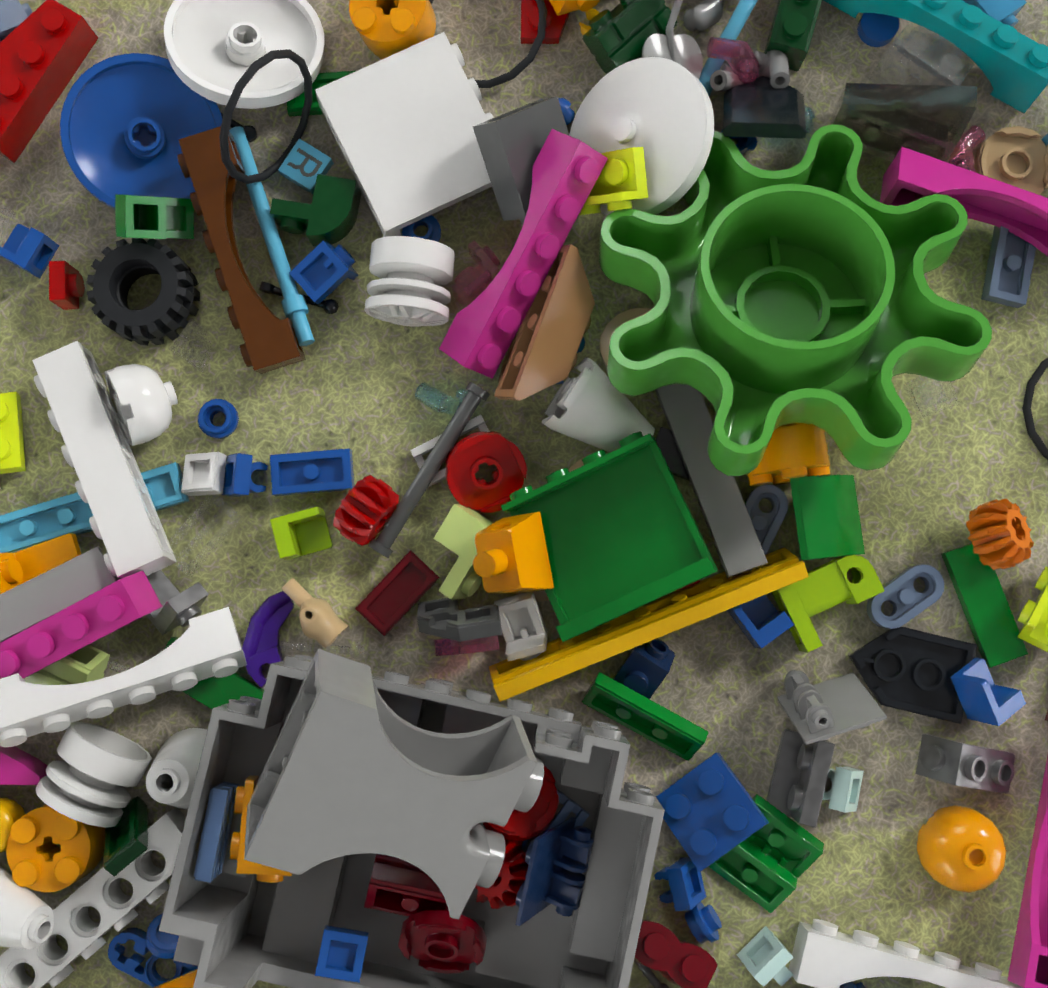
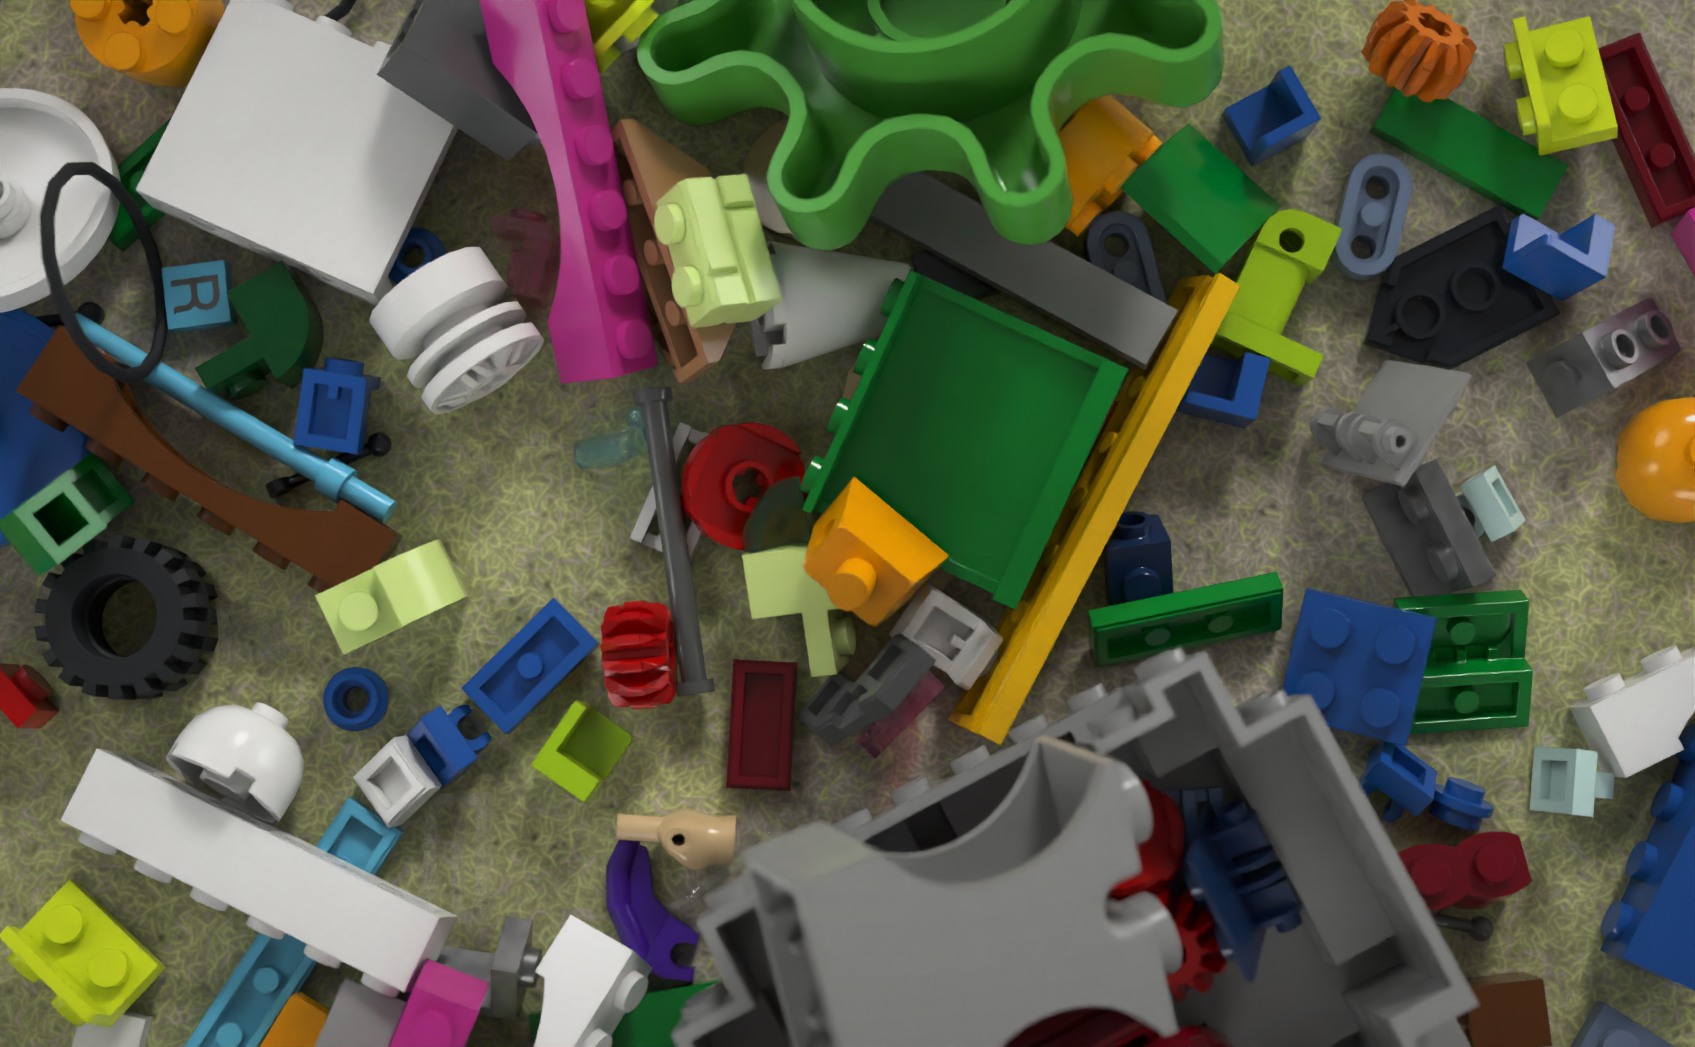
camera: 45 degrees left, 0 degrees up
(273, 383) = (391, 595): none -> yellowish green brick
(486, 500) = (777, 518): none -> tile
(563, 346) = (717, 250): none -> yellowish green brick
(897, 506) = (1272, 118): none -> blue panel

